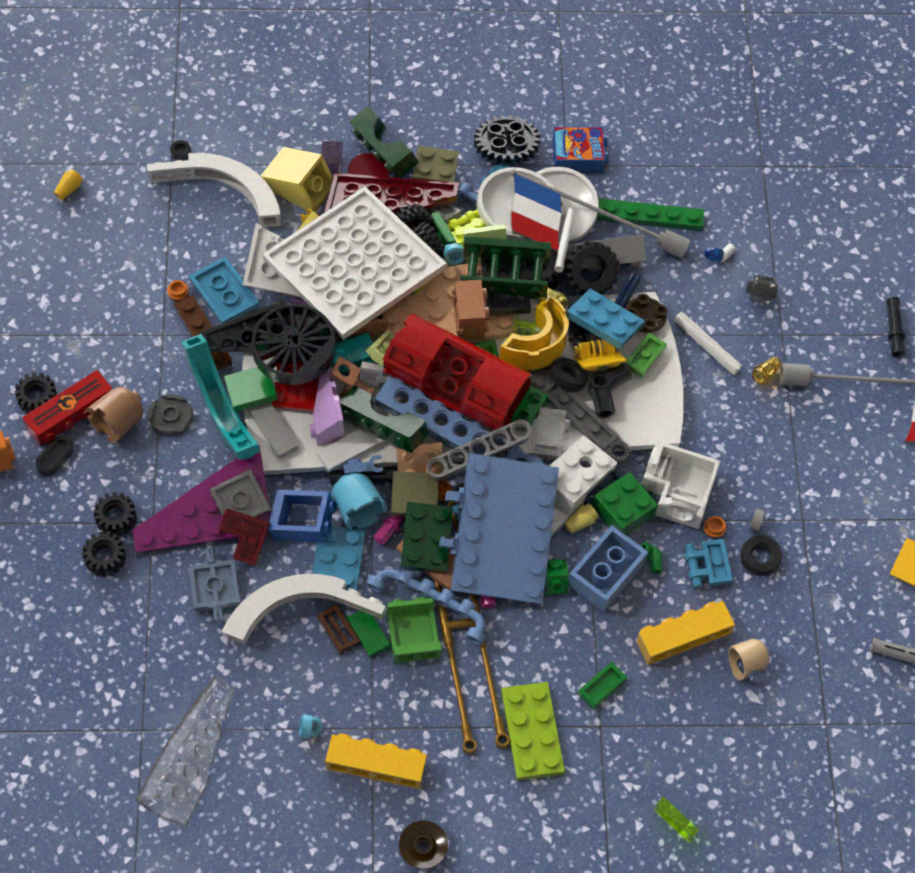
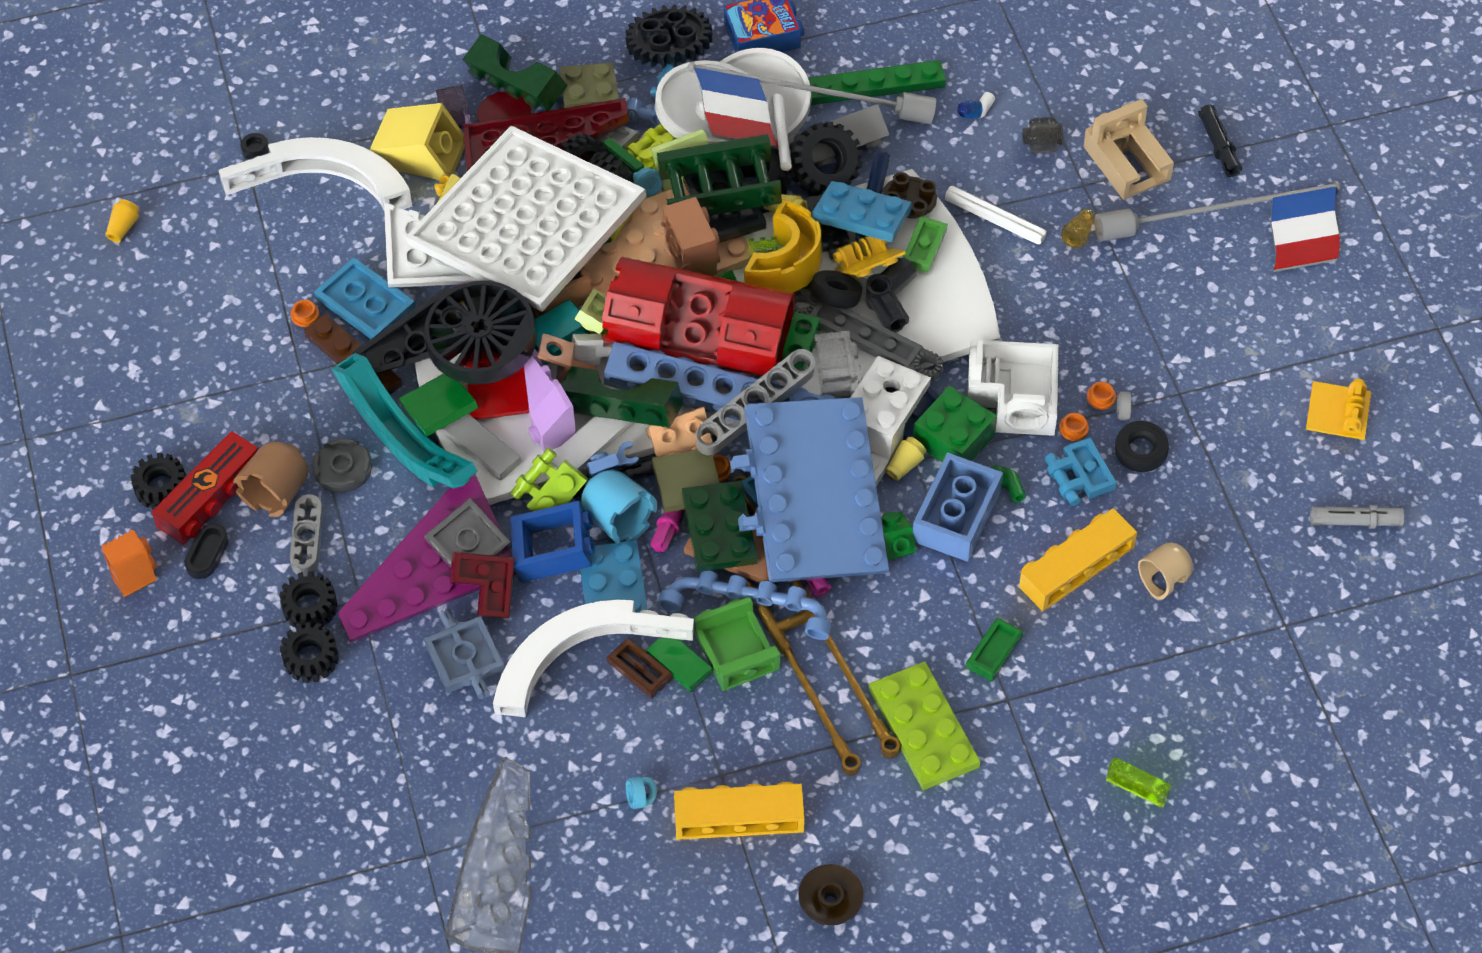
camera: 10 degrees left, 5 degrees down
(131, 472) = (300, 524): none -> light grey beam
(318, 477) = (557, 490): none -> lime plate
(743, 507) = (1101, 395): none -> orange plate
(821, 302) = (1124, 131): none -> tan brick

